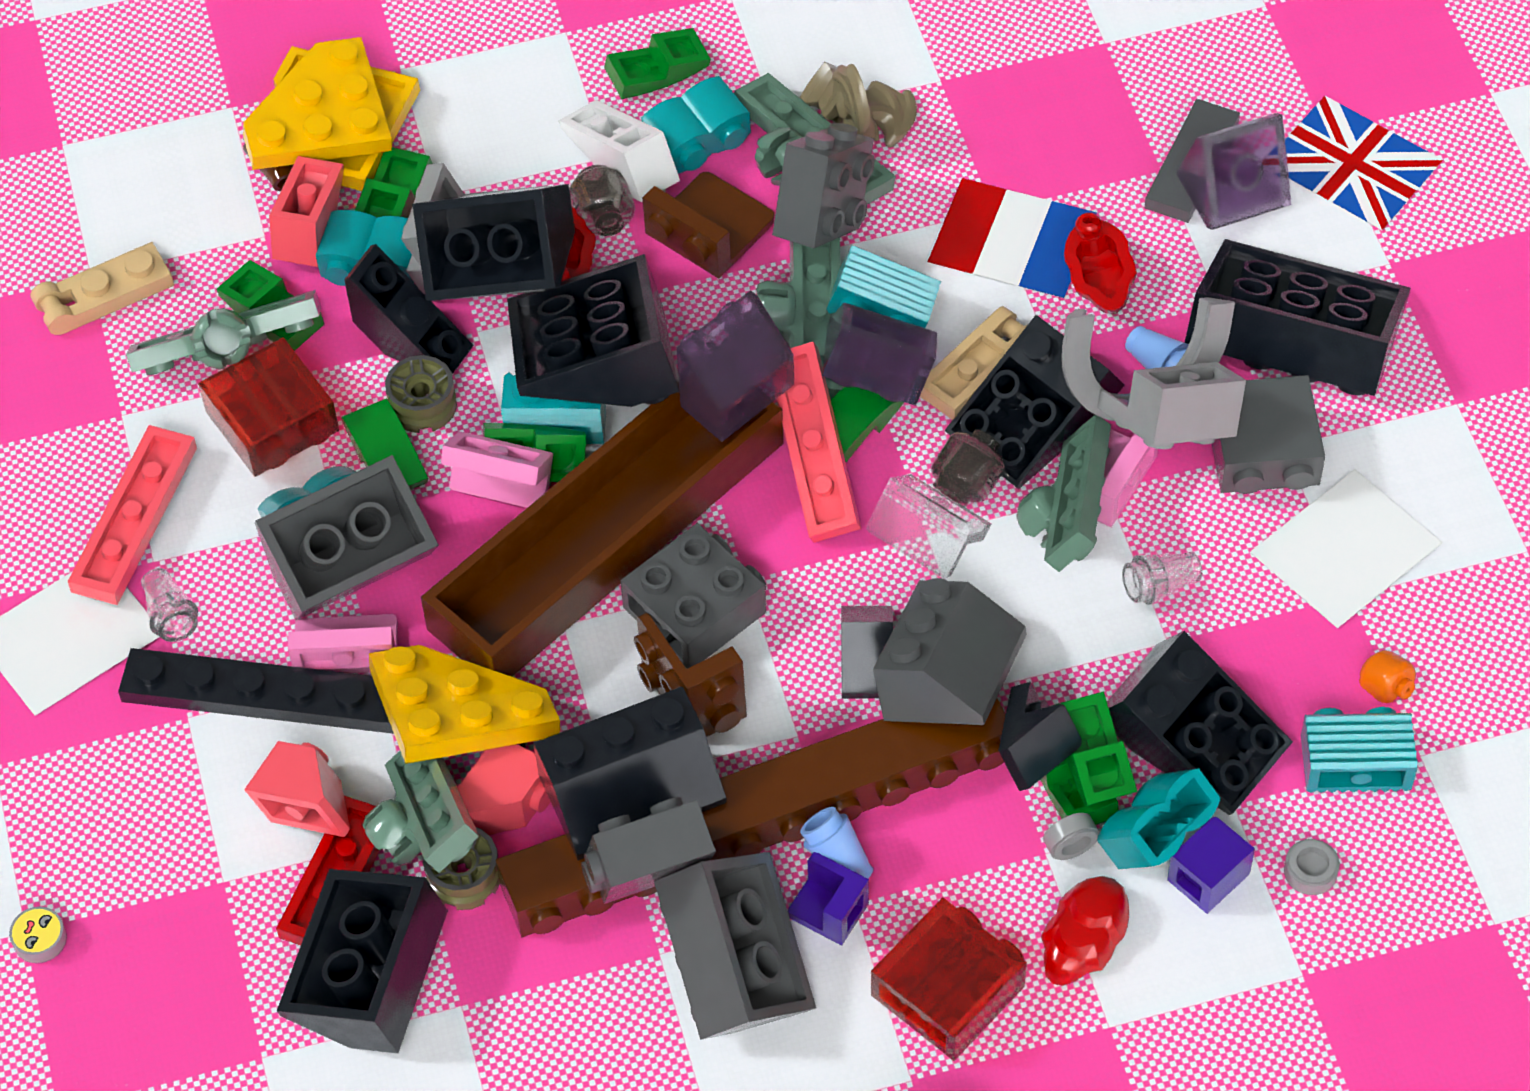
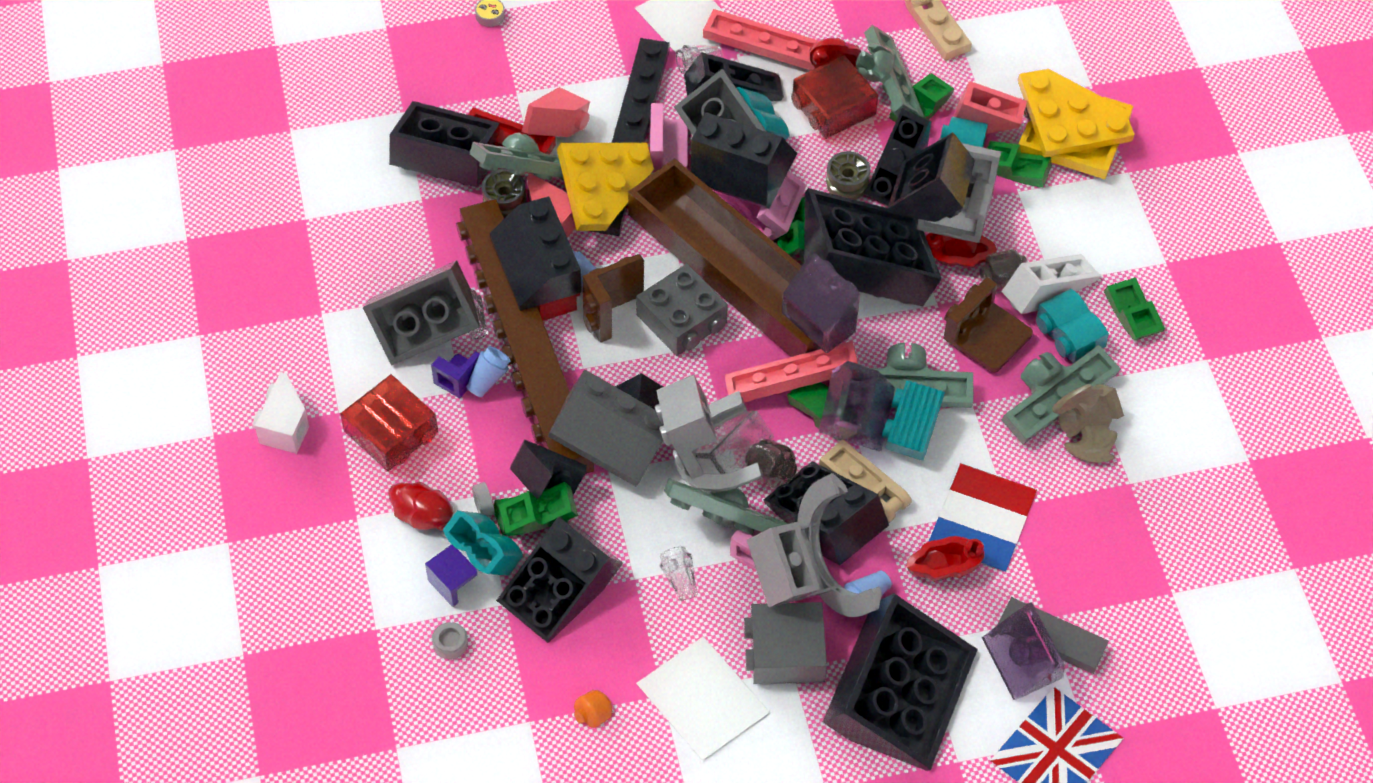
camera: 90 degrees right, 0 degrees up
(181, 407) = (831, 49): none -> red arm
(228, 555) = (741, 75): none -> black slope
(379, 434) = (813, 155): green slope -> none
(449, 490) = (740, 159): none -> black slope
(634, 854) = (472, 253): dark grey brick -> none
(823, 185) = (996, 378): dark grey brick -> none
(963, 528) = (691, 424): none -> light grey piece
(1358, 751) = (527, 672): teal brick -> none

